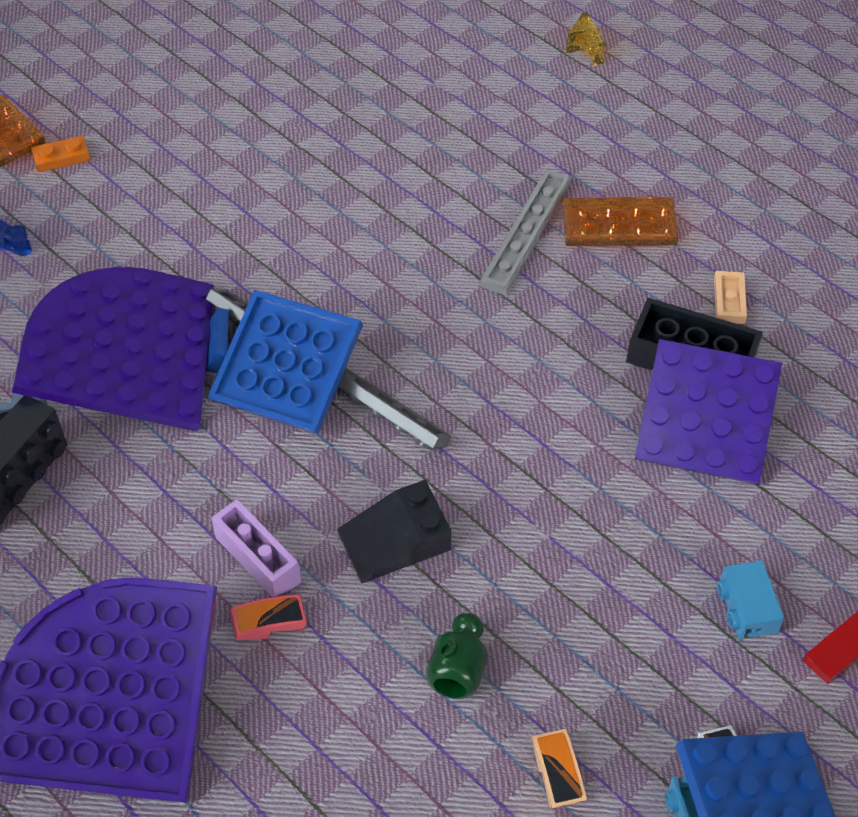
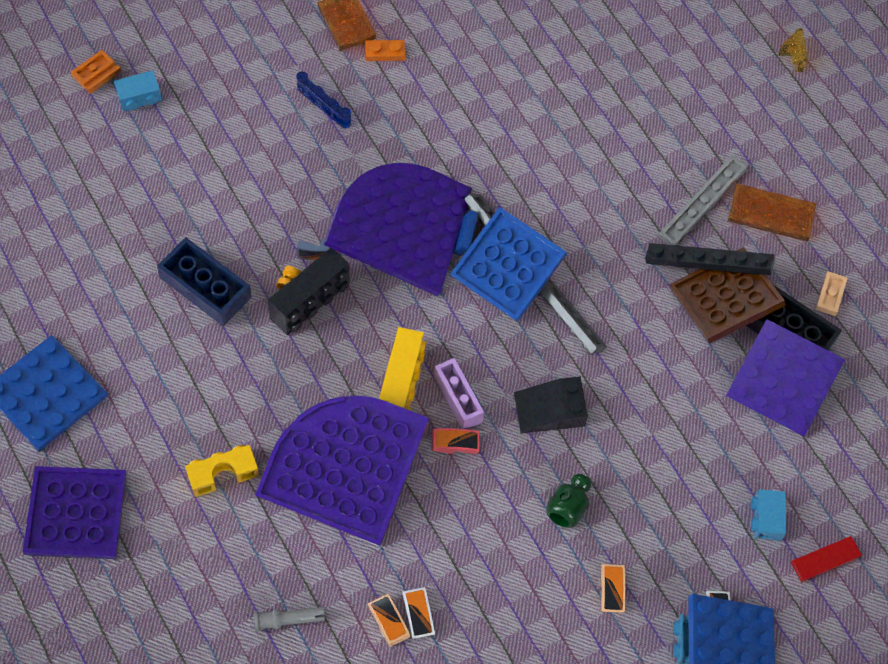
camera: 10 degrees right, 10 degrees up
(166, 529) = (404, 368): none -> yellow brick
(558, 289) = (710, 259): none -> black plate
(595, 327) = (725, 300): none -> reddish brown plate

